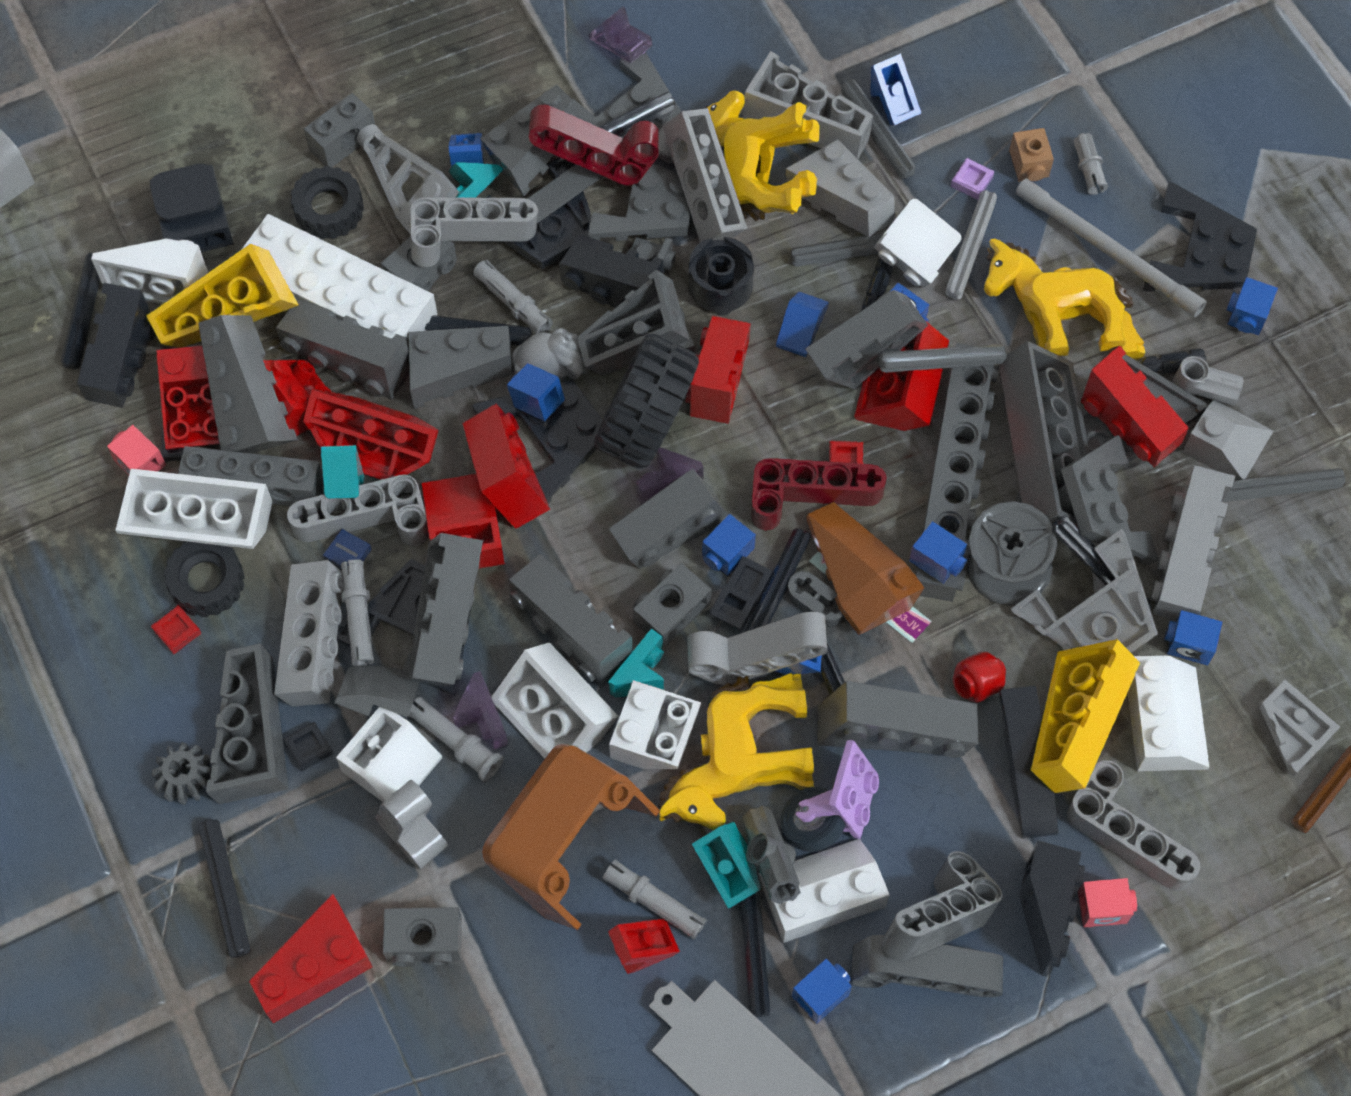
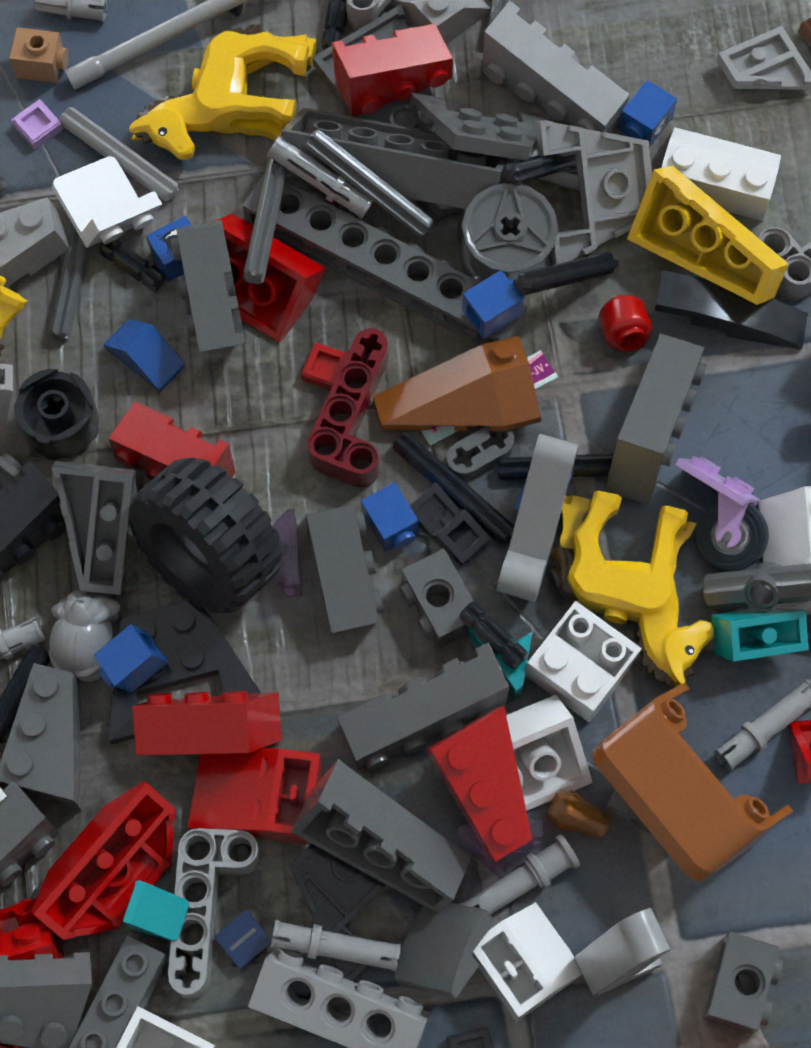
camera: 70 degrees left, 5 degrees up
(511, 668) = (485, 782): none -> red wedge
(523, 763) = (577, 815): none -> clear orange cone
(646, 646) = (490, 631): none -> black axle
(996, 606) = (565, 273): none -> black axle
(1000, 394) = (320, 177): none -> light grey pin
(1011, 425) = (368, 183): none -> dark grey axle

